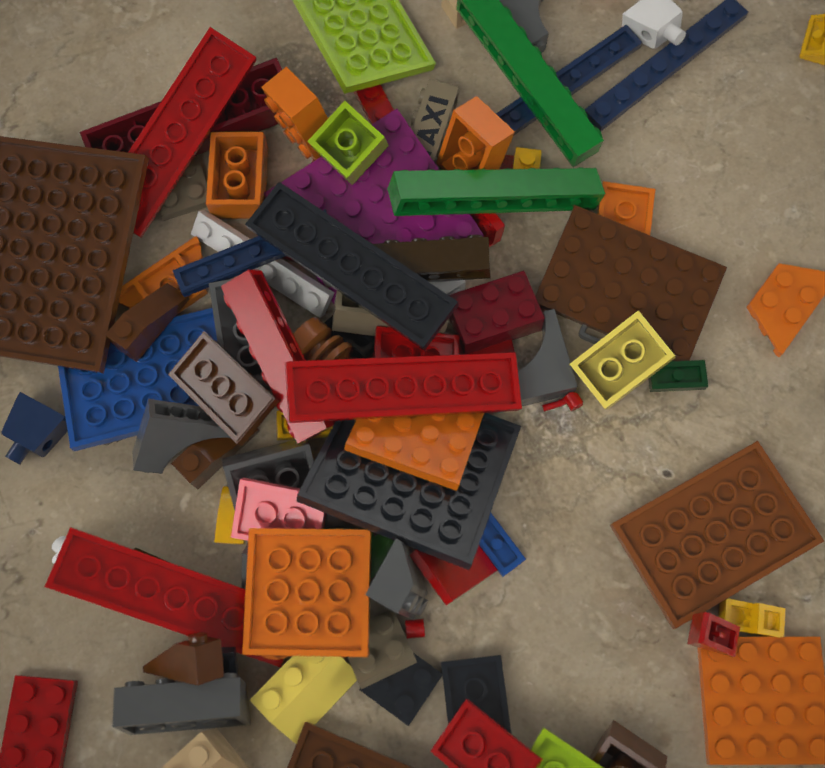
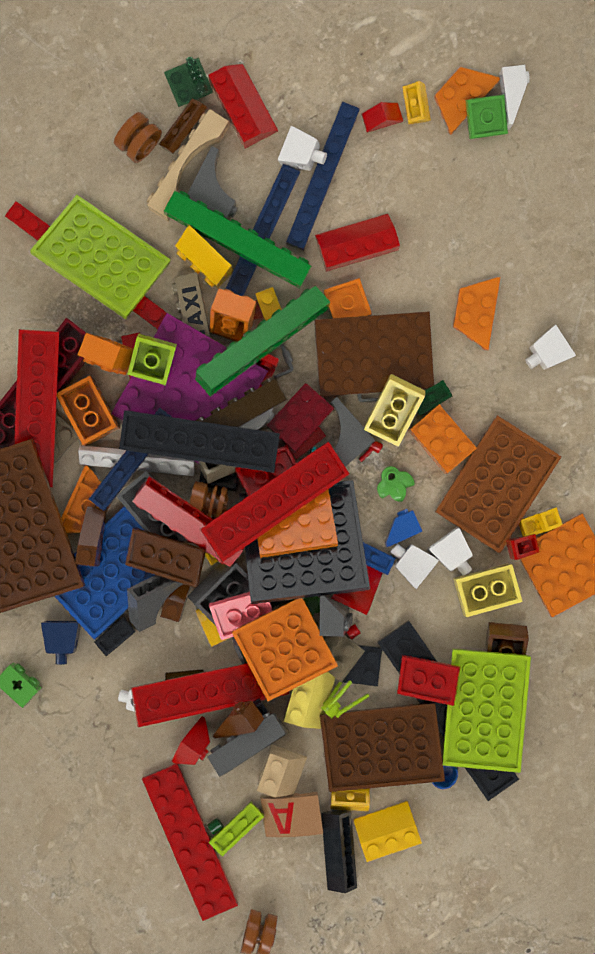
camera: 35 degrees left, 15 degrees up
(101, 463) = (115, 636): none -> black plate
(108, 662) = (193, 745): none -> red slope
(328, 717) = (331, 706): none -> lime plant
(476, 69) = (203, 258): none -> yellow slope
(515, 241) = (288, 359): none -> dark grey piece
(547, 578) = (413, 563): none -> white torso
(557, 522) = (403, 527): none -> blue slope
(576, 464) = (396, 486): none -> bright green plate
(609, 591) = (452, 551): none -> white torso
(635, 670) = (487, 590): none -> light yellow brick
(667, 433) = (442, 439): none -> orange brick
(673, 153) = (357, 242): none -> red slope
(771, 31) = (382, 116): none -> red slope

